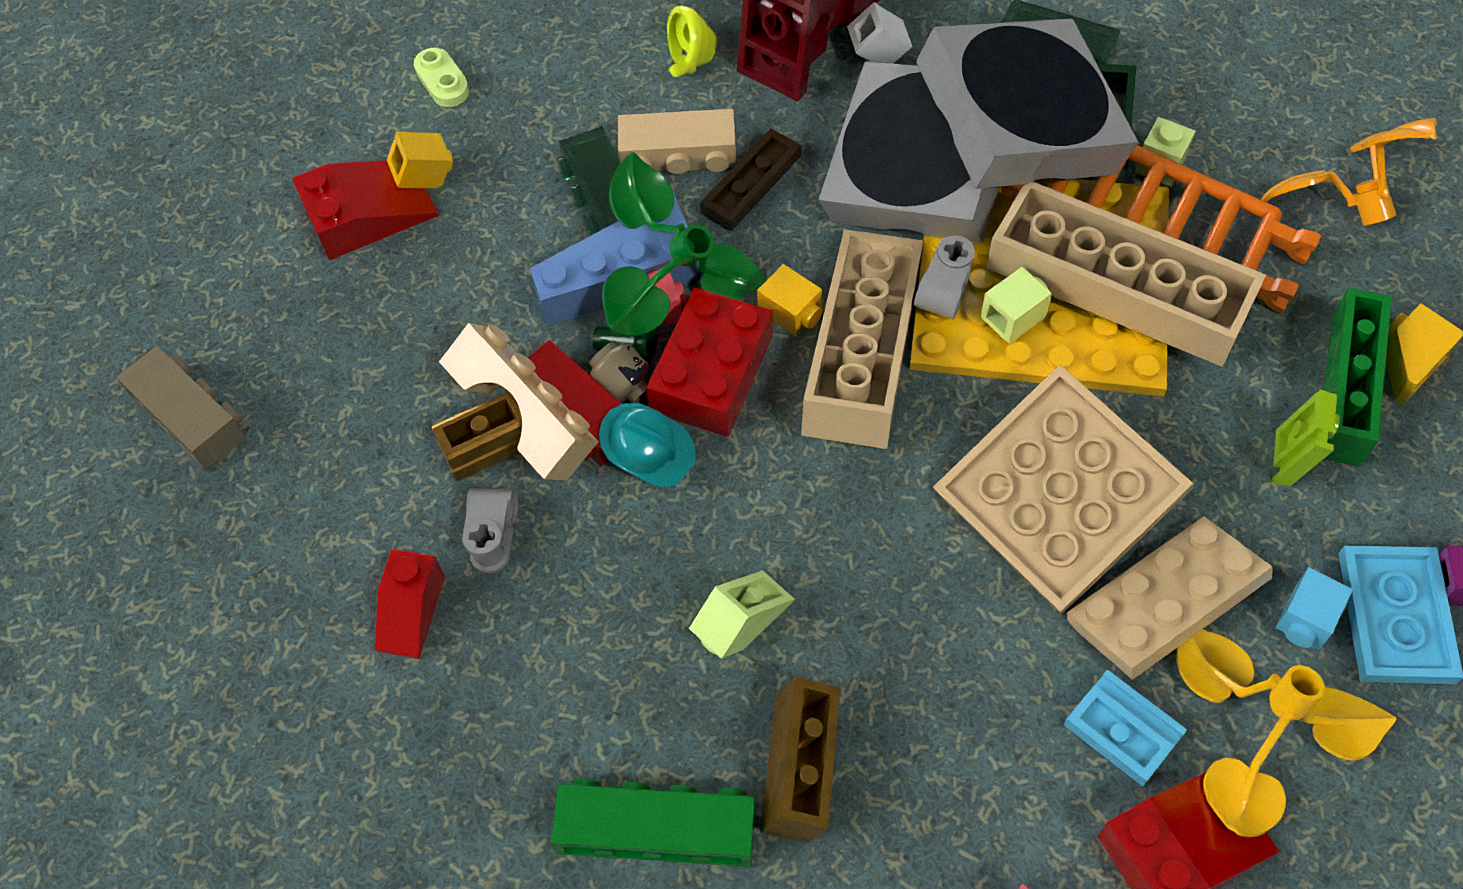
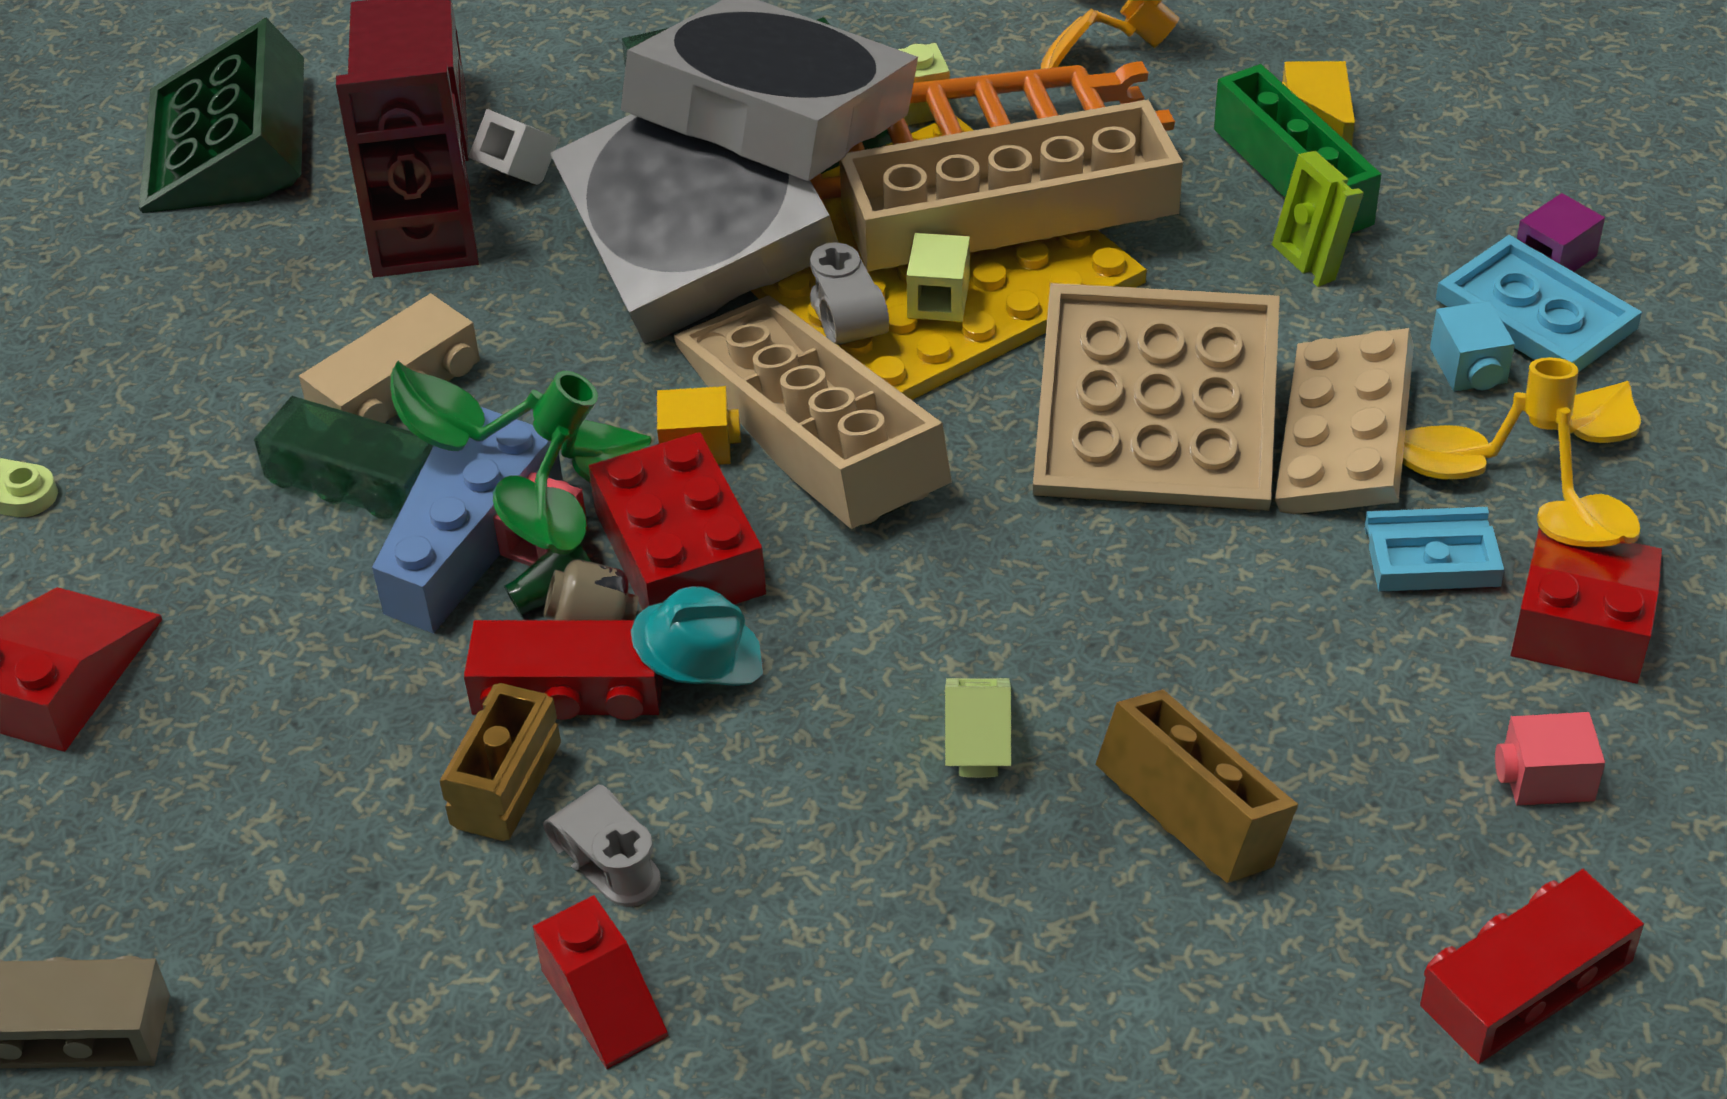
camera: 45 degrees left, 15 degrees down
(419, 160) = (84, 568): yellow brick -> none
(551, 434) = (435, 679): arch -> none
(654, 823) = (1117, 960): green brick -> none
(689, 32) = (288, 262): neon yellow hat -> none
(751, 179) = (514, 348): dark brown plate -> none

